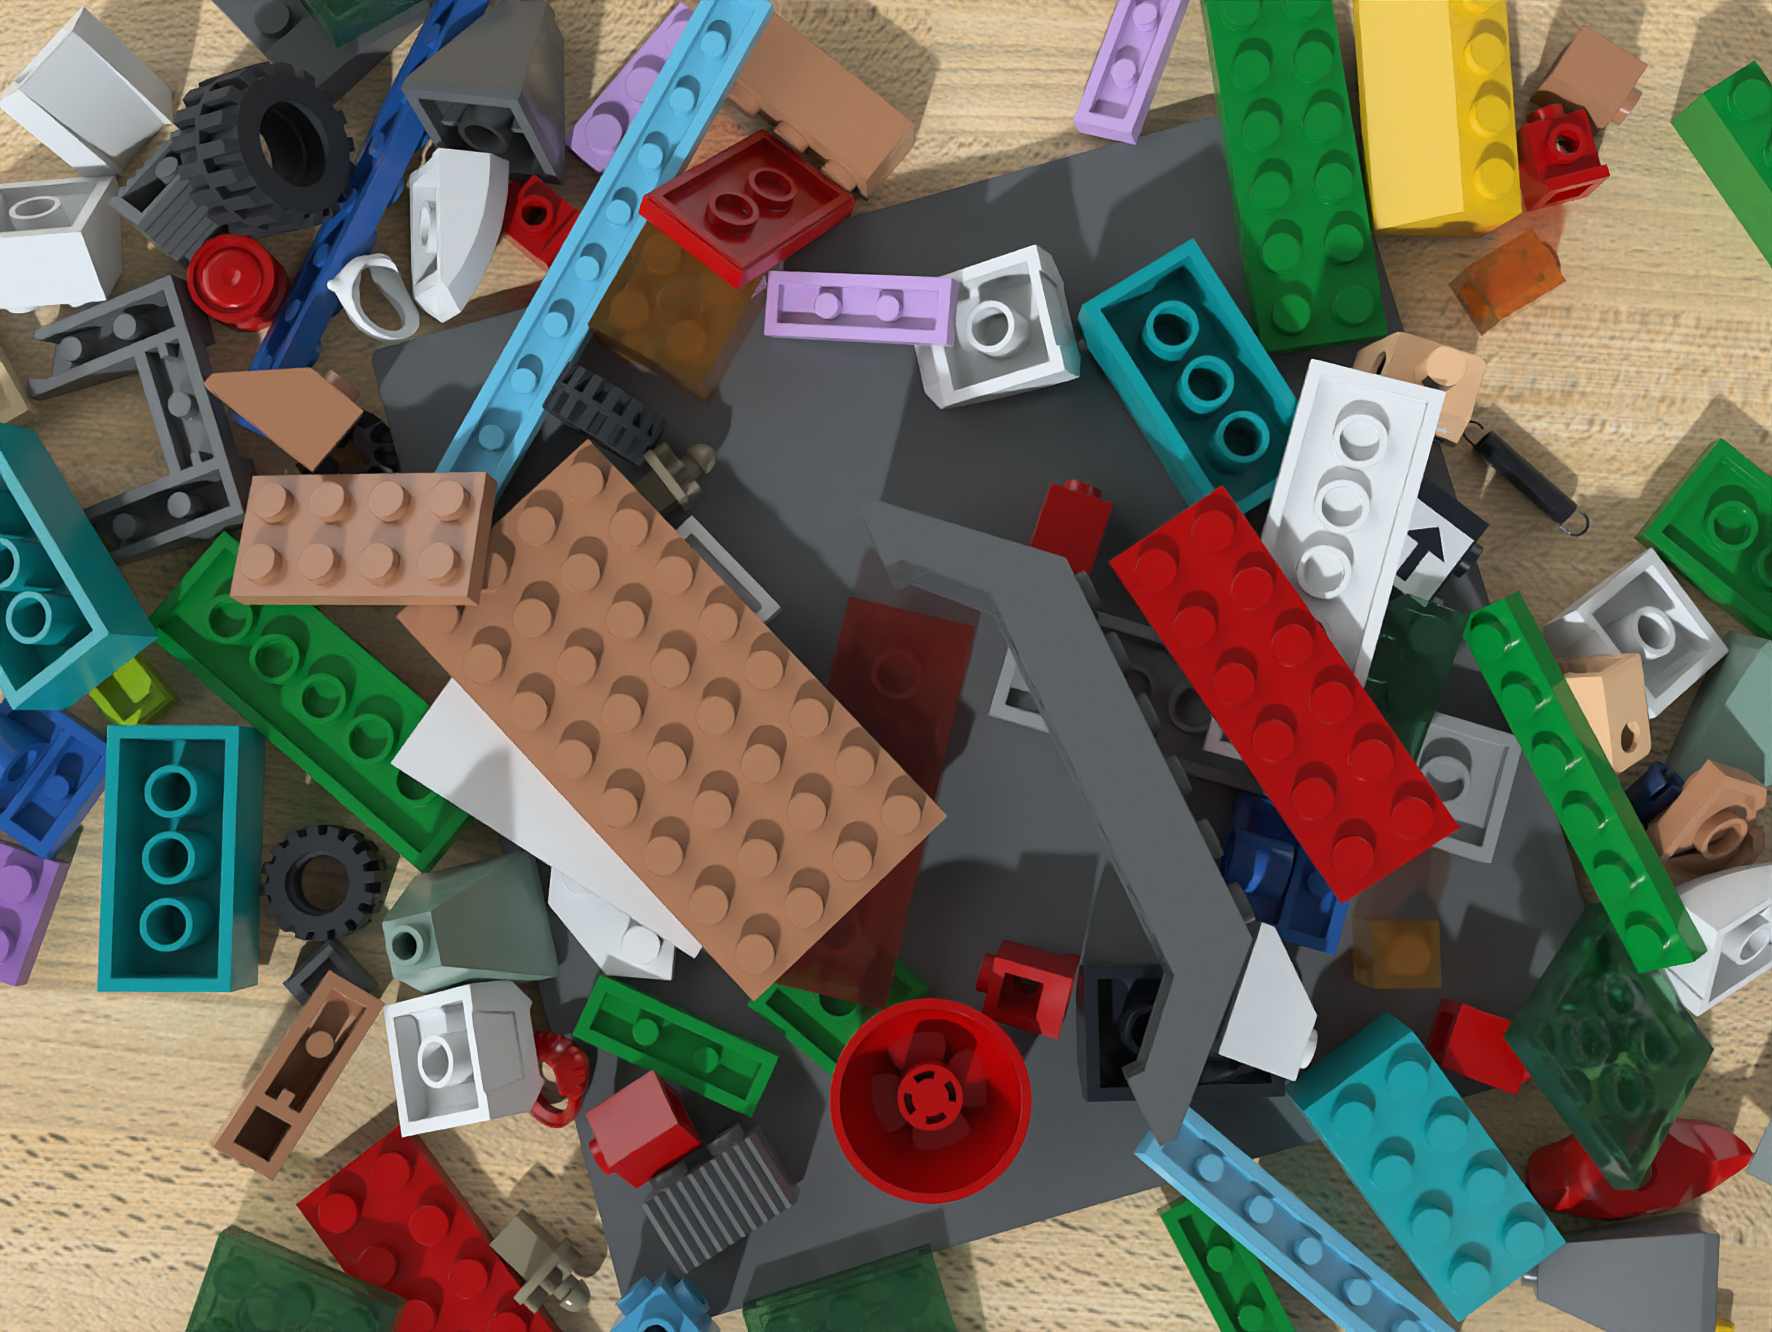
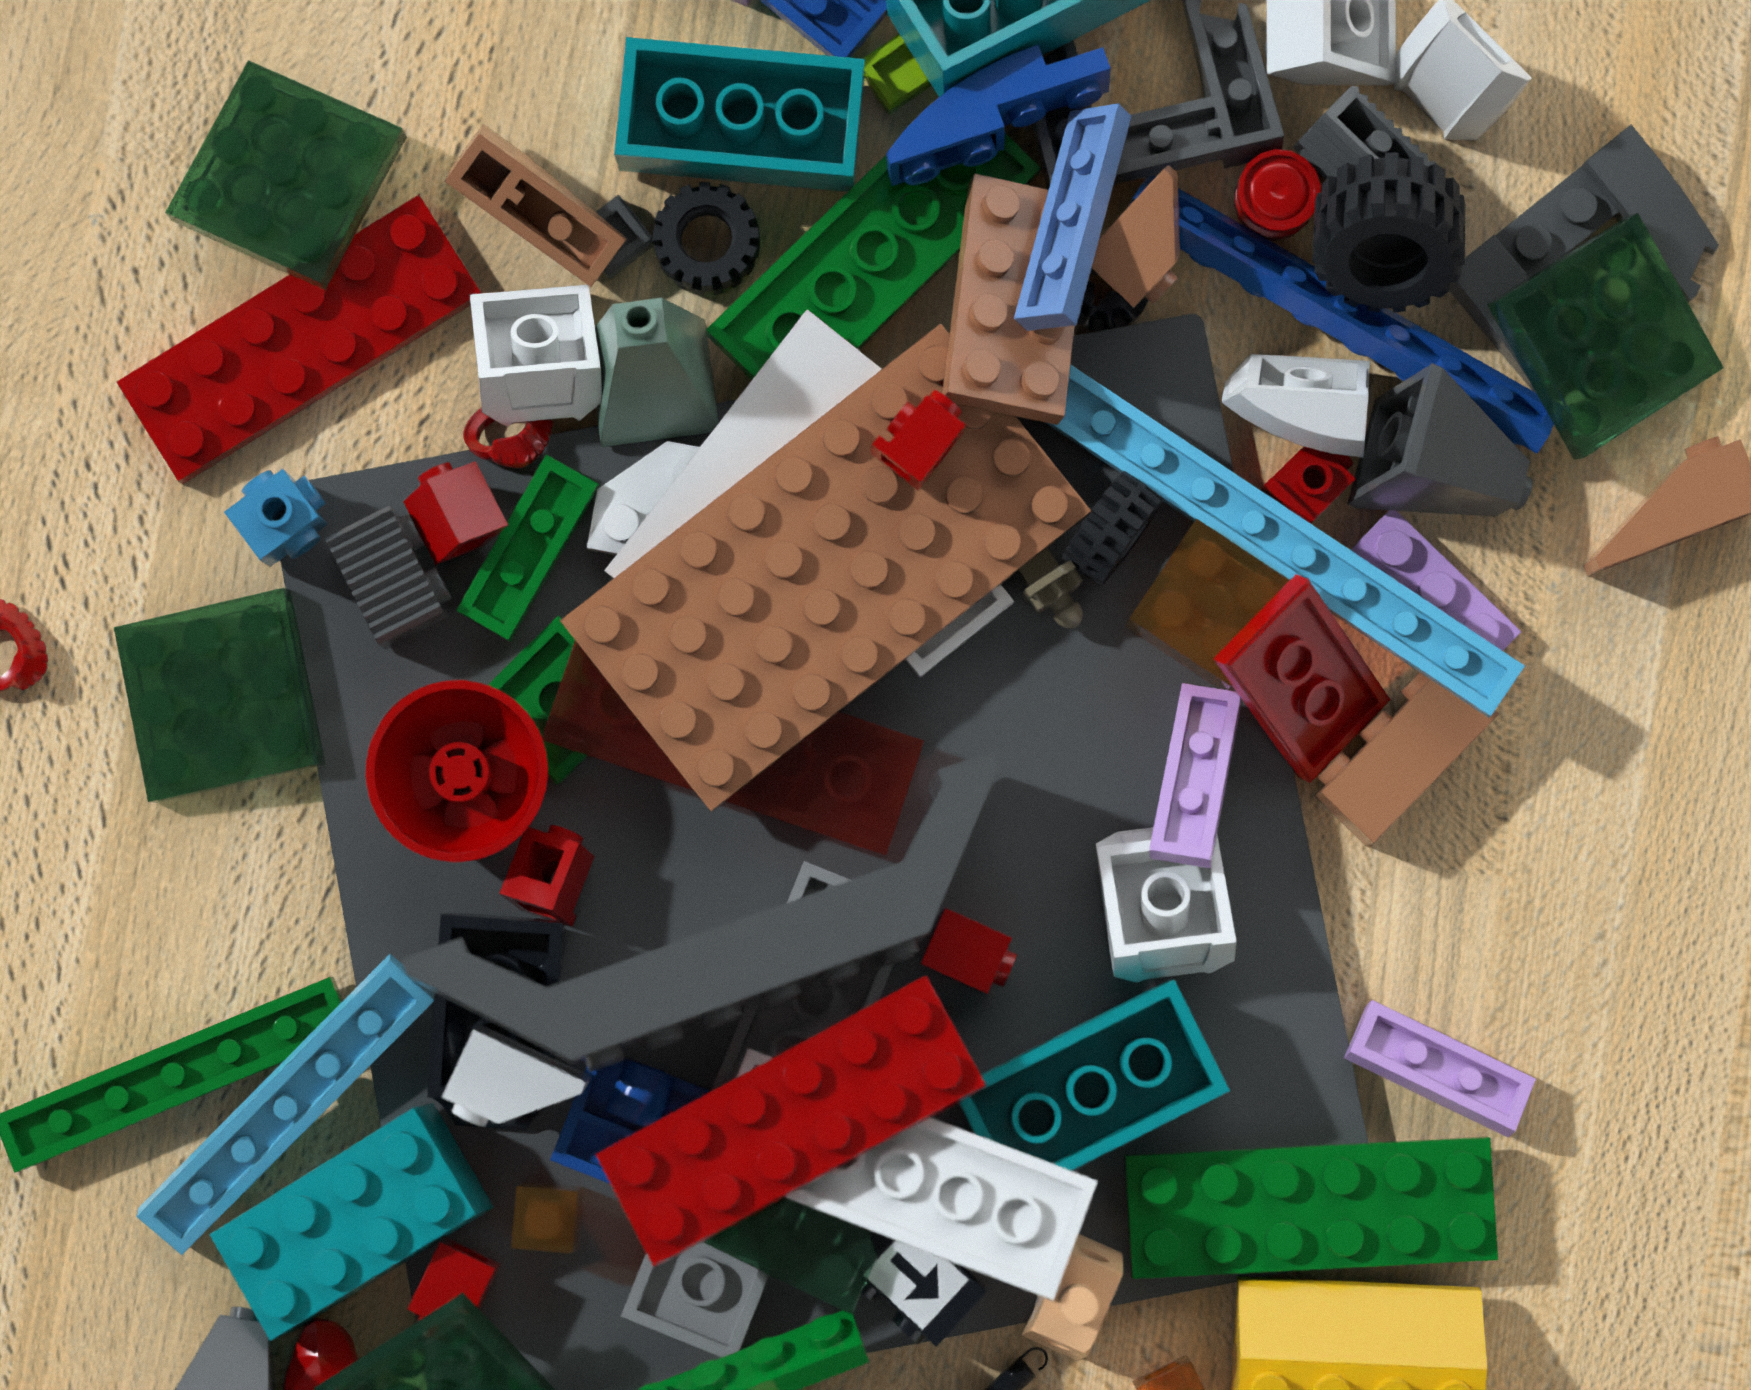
camera: 95 degrees right, 0 degrees up
(164, 602) = (972, 116): none -> blue slope
(268, 481) = (1072, 217): none -> medium blue plate
(389, 281) = (1270, 333): white piece -> none
(521, 621) = (920, 438): none -> red brick
(542, 1263) = (342, 411): dark tan piece -> none

